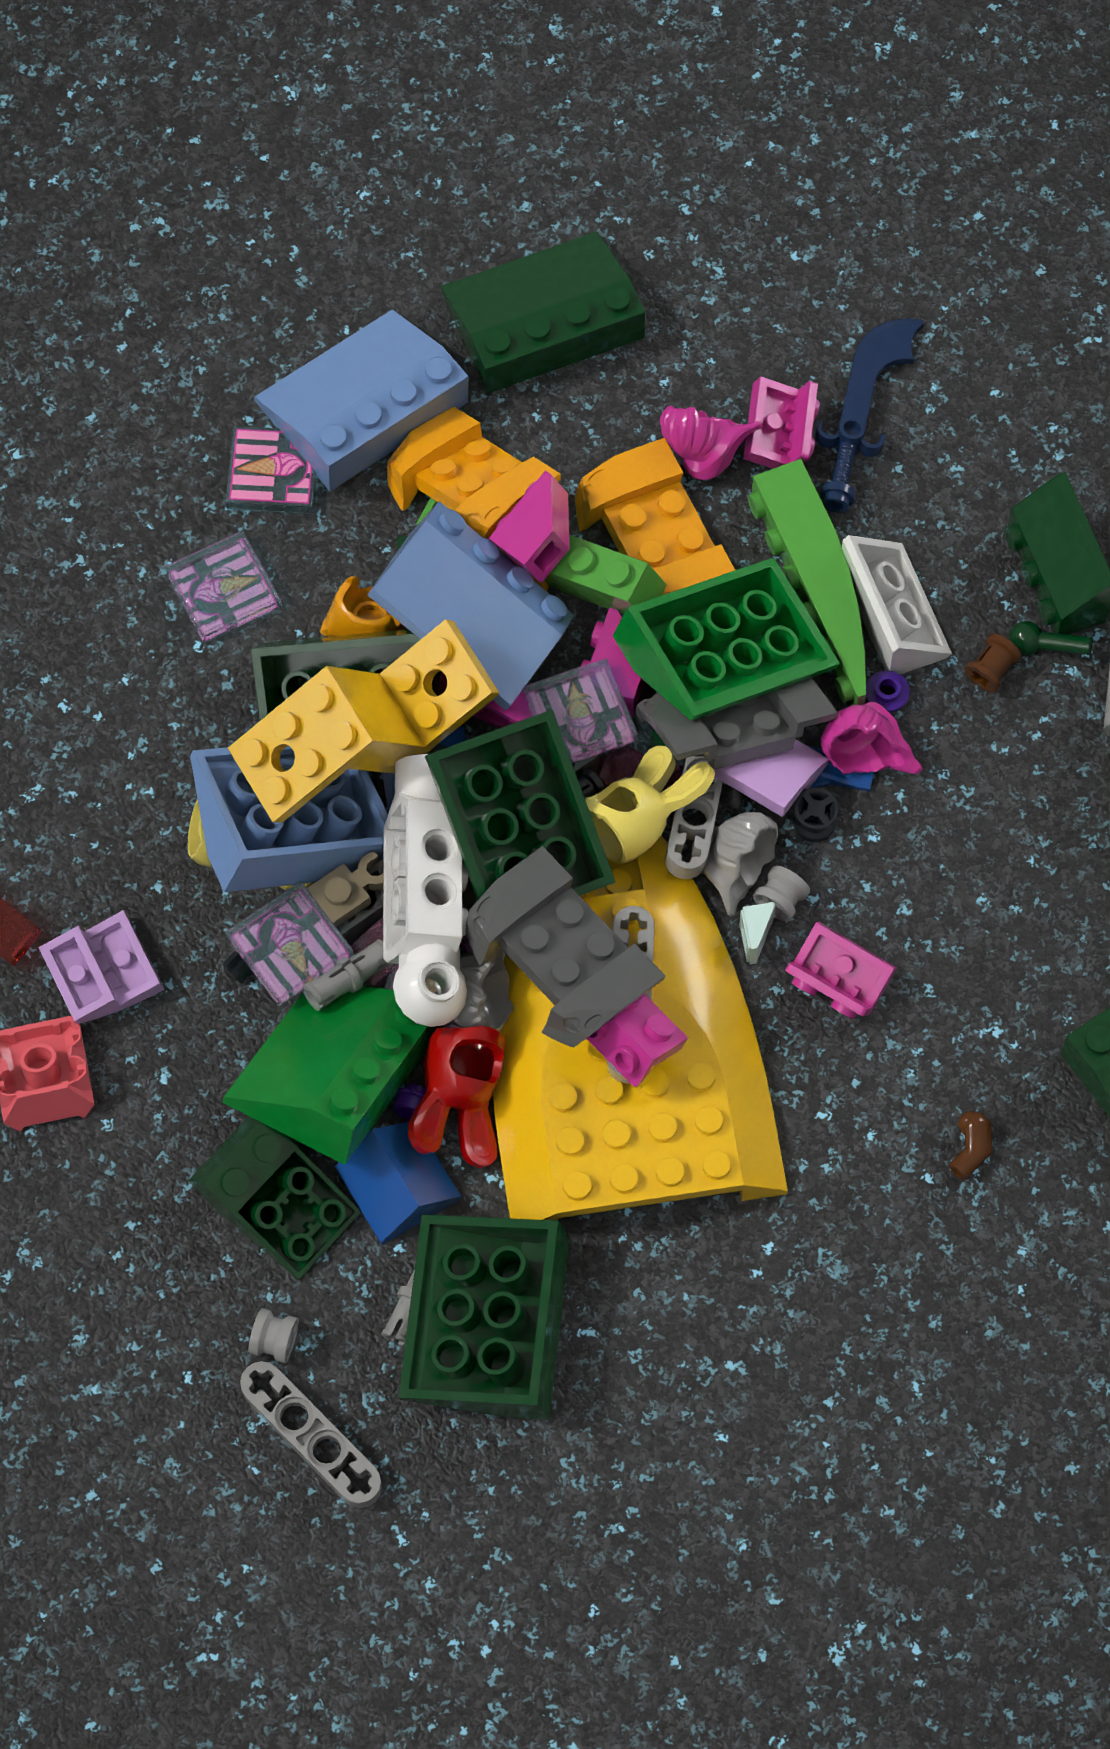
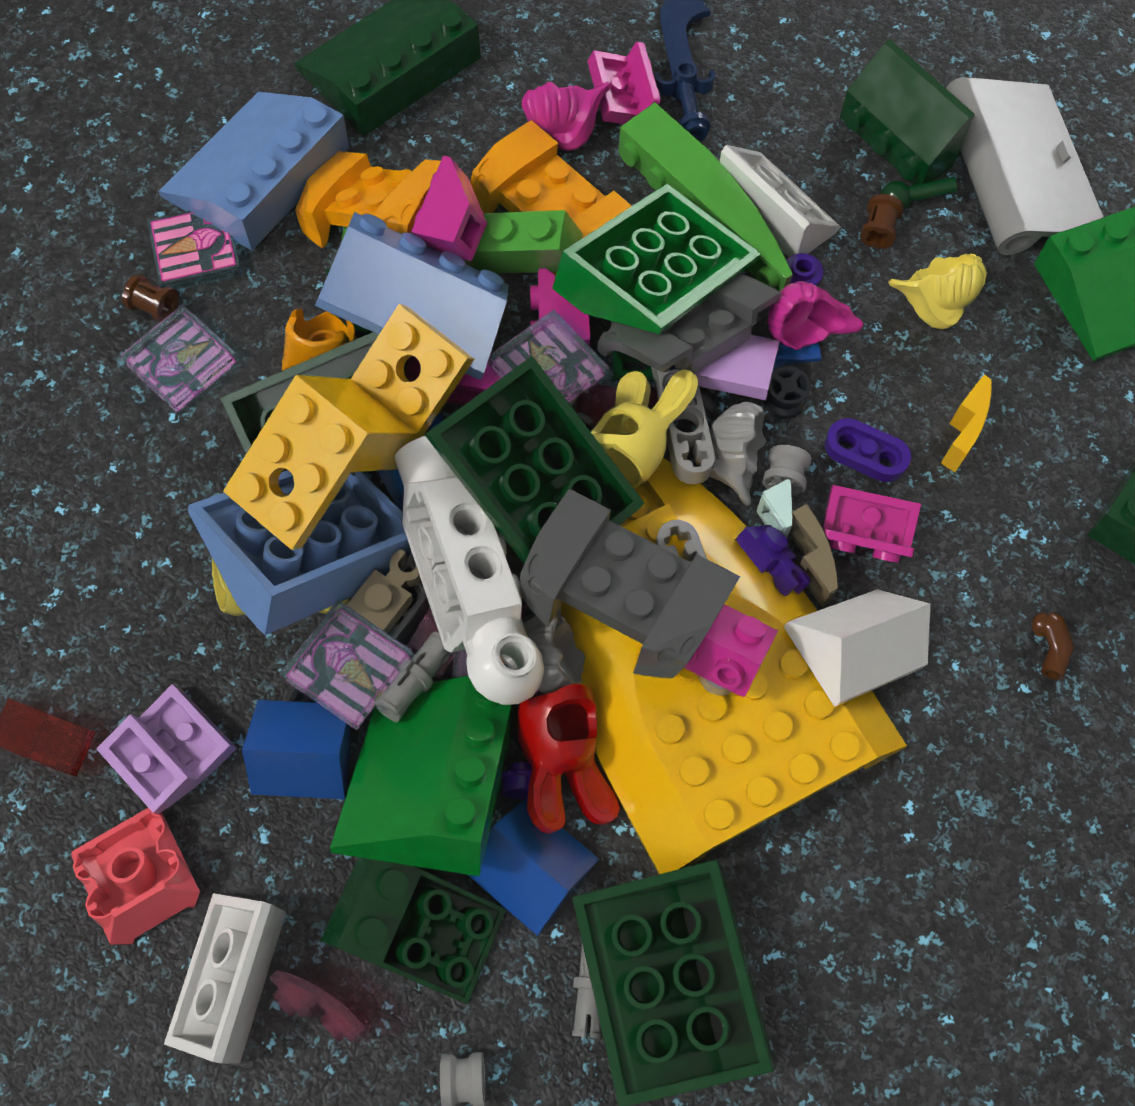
camera: 20 degrees left, 0 degrees up
(97, 1183) = (225, 979): none -> white slope
(166, 1226) = (308, 998): none -> clear pink slope
(212, 514) = (149, 297): none -> reddish brown bush
(219, 1008) = (297, 751): none -> blue slope
(730, 969) = (770, 554): none -> dark purple plate
(770, 992) = (818, 557): none -> dark tan slope
(779, 1081) = (863, 642): none -> white slope
(874, 899) = (867, 448): none -> dark purple plate
(990, 897) = (970, 421): none -> yellow slope
(1021, 757) = (944, 288): none -> light yellow hair

